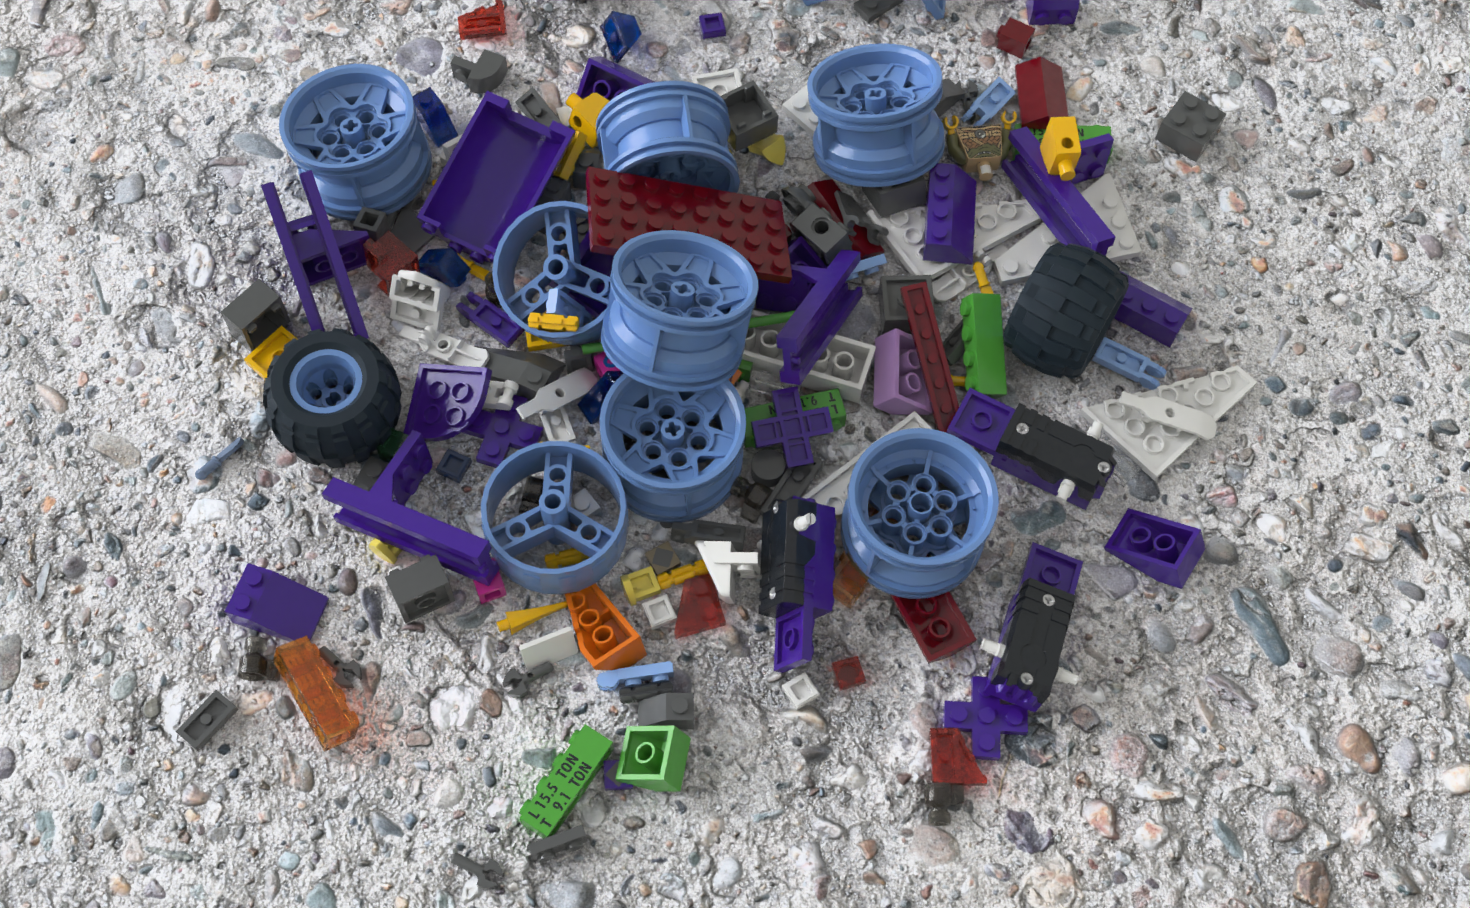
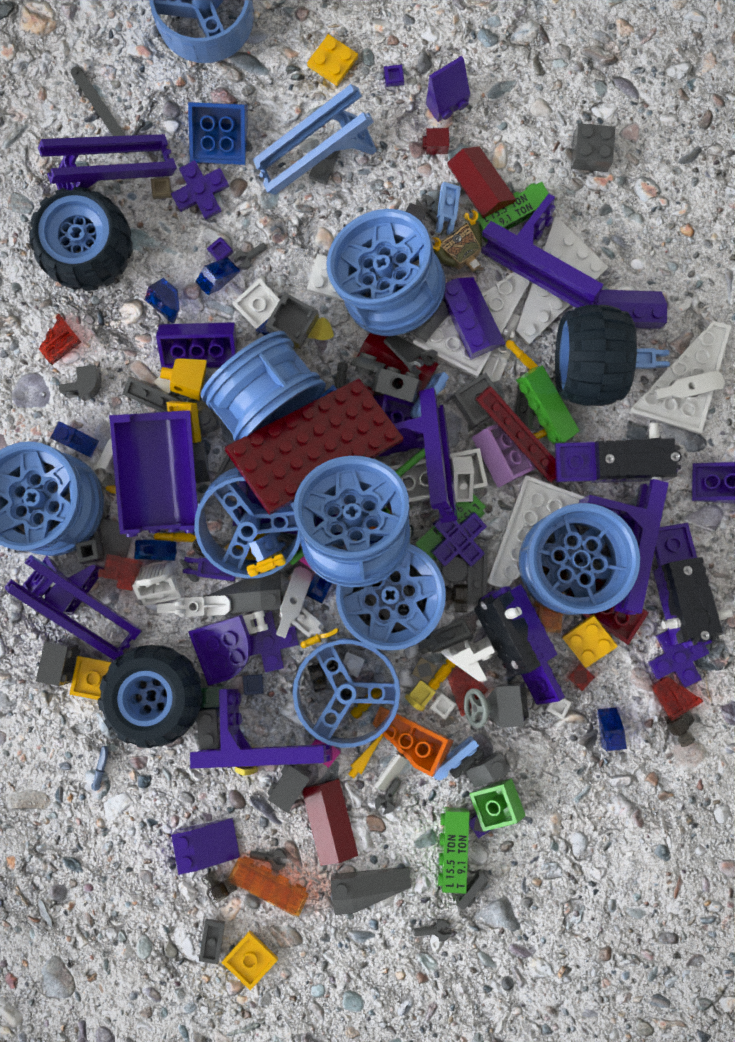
camera: 30 degrees left, 20 degrees up
(235, 769) = (249, 960): none -> yellow plate
(423, 766) = (365, 888): none -> dark grey wedge
(438, 667) = (330, 822): none -> dark red slope
(692, 43) = (216, 275): none -> clear blue slope
(736, 640) = (505, 705): none -> dark grey piece
(737, 45) = (248, 256): none -> dark grey bar
(834, 362) = (463, 478): none -> white slope
(848, 753) = (611, 729): none -> clear blue slope
(883, 632) = (589, 641): none -> yellow plate
(1020, 530) = (645, 523): none -> dark purple piece
(1061, 147) = (531, 233): yellow torso -> none

